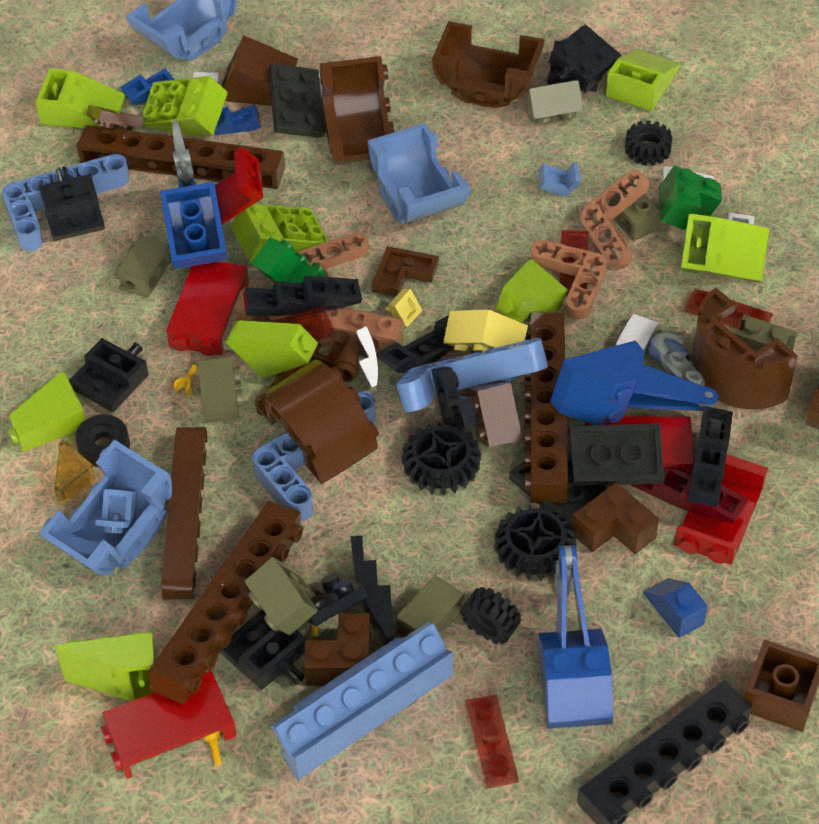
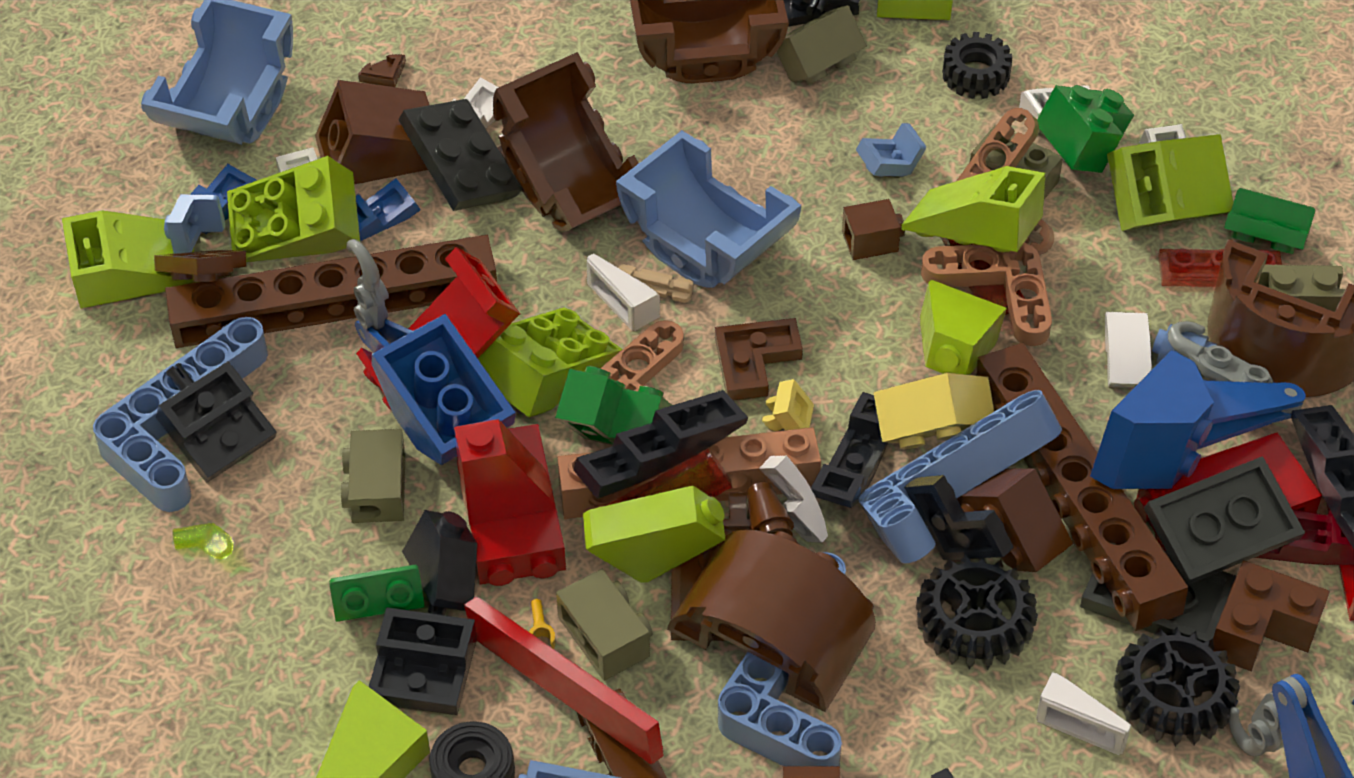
camera: 25 degrees left, 0 degrees up
(35, 270) = (206, 537): none -> clear neon green arm
(97, 326) = (375, 591): none -> green bracket
(121, 91) = (191, 217): none -> medium blue bracket
(149, 323) = (445, 558): none -> black slope
(173, 410) = (566, 681): none -> red tile
(197, 282) = (499, 474): none -> red slope
(288, 43) = (383, 72): none -> reddish brown tile
(348, 214) = (625, 295): none -> white slope
(370, 211) = (663, 284): none -> tan axle
(463, 536) = (1081, 716): none -> white slope
(519, 219) = (872, 229): none -> reddish brown brick
(587, 227) = (984, 210): none -> lime slope
(776, 292) = (1270, 219): none -> green bracket

